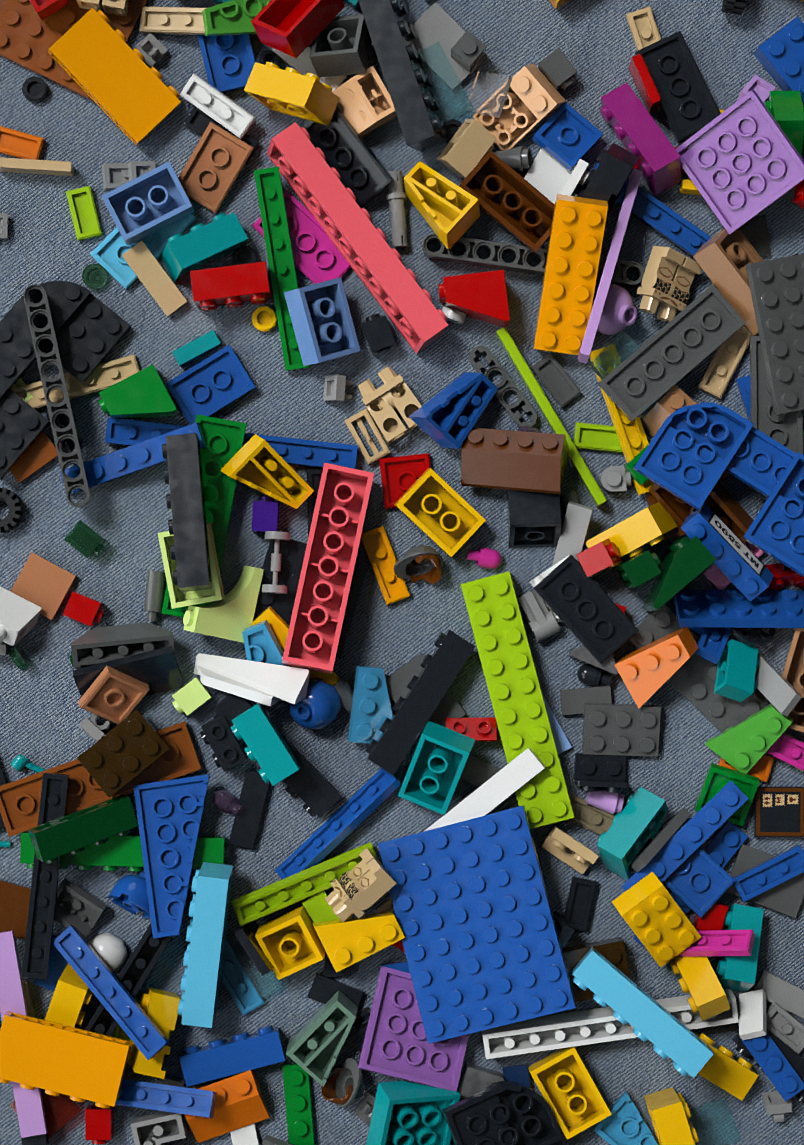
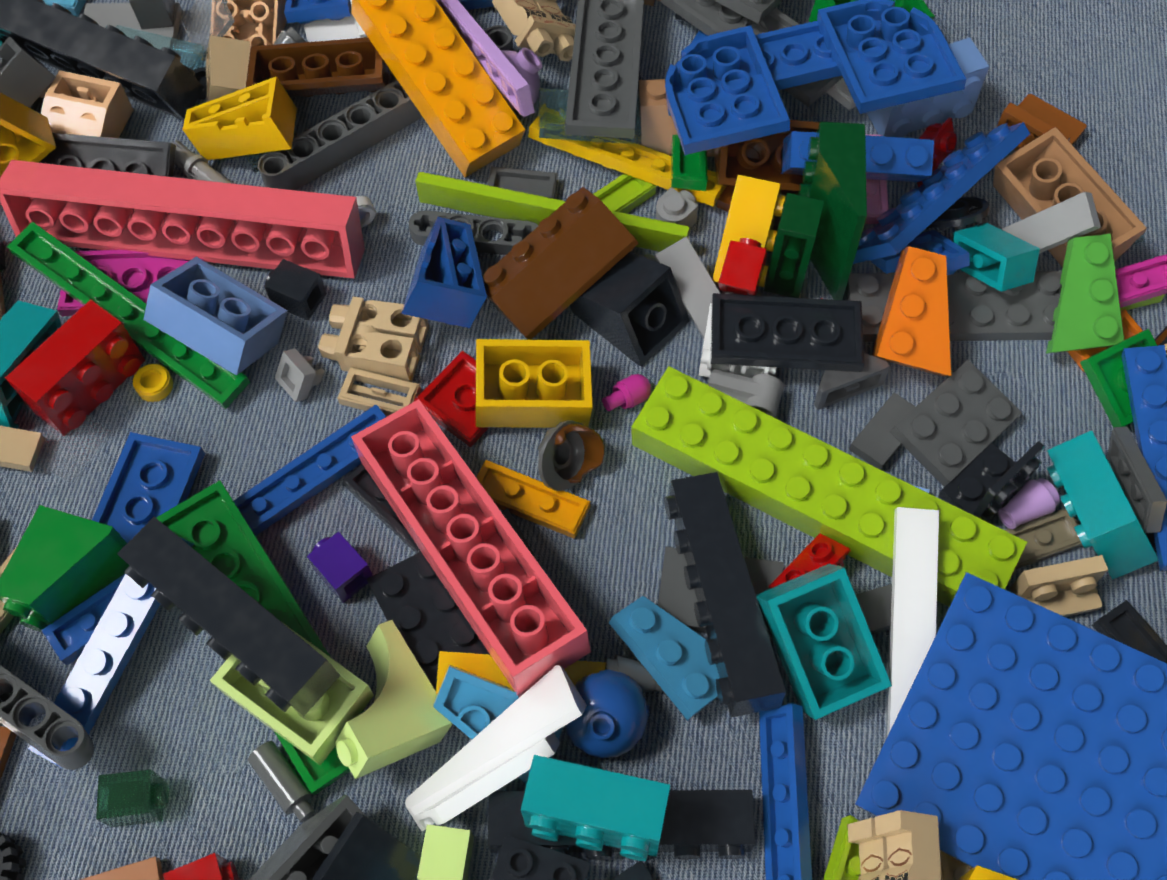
camera: 40 degrees left, 25 degrees down
(196, 348) = (95, 472): teal piece -> none
(268, 472) = (295, 506): yellow wedge -> none
(276, 562) = (373, 568): light grey wheel -> none
(477, 296) = (367, 161): red slope -> none
(593, 675) = (866, 400): black cylinder -> none
(725, 363) = (659, 41): tan tile -> none

